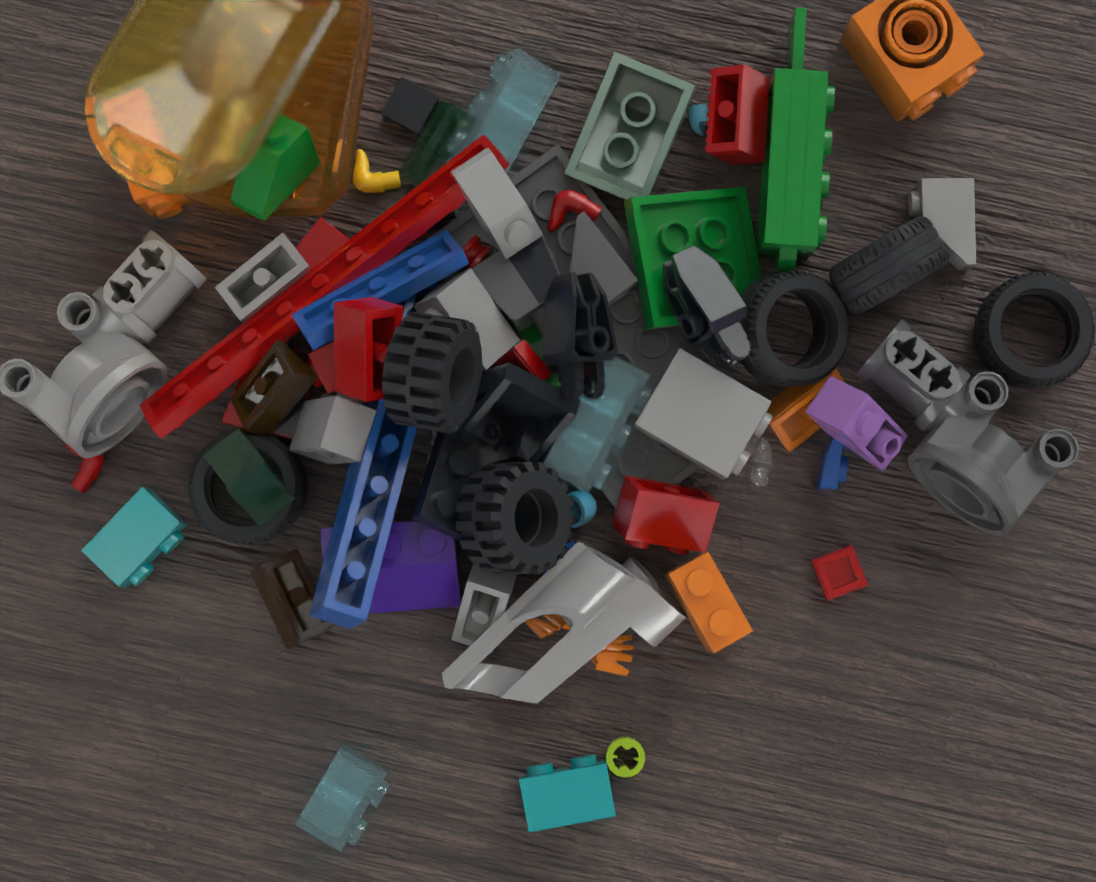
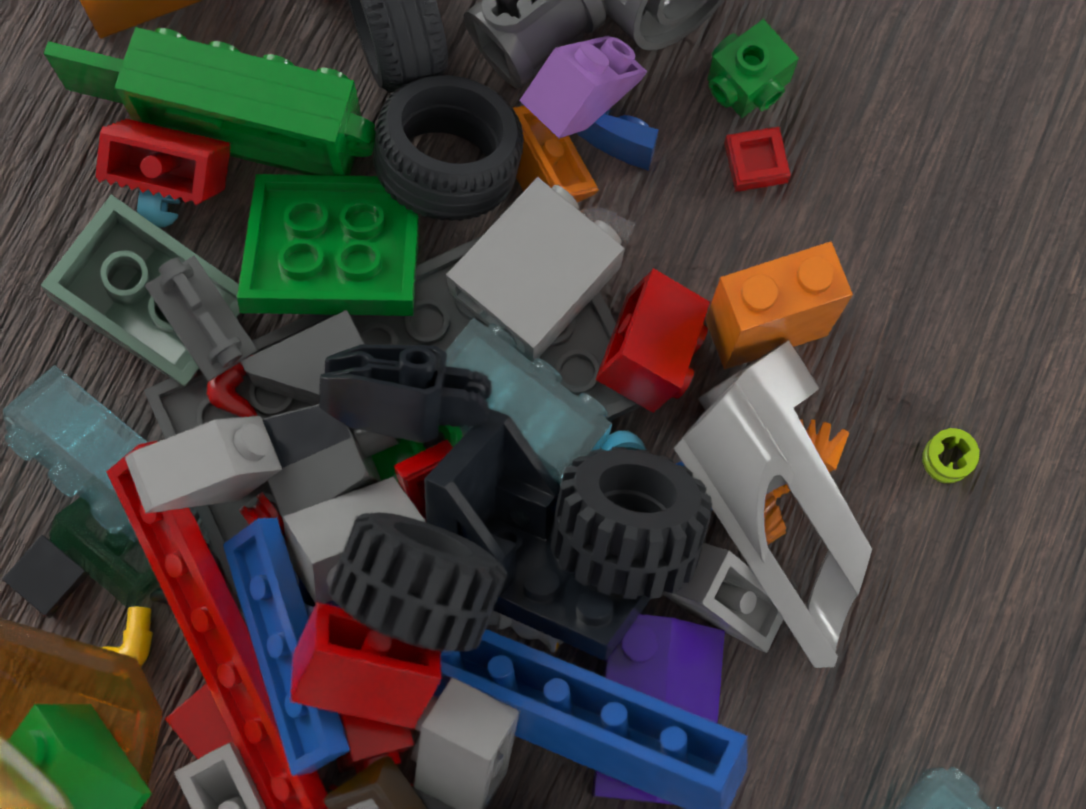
camera: 85 degrees left, 10 degrees down
(567, 793) = (992, 535): teal brick -> none
(614, 173) = (200, 317): none -> dark grey hinge
(706, 306) = (400, 229): black hinge -> none
(922, 557) = (751, 69): none -> green brick

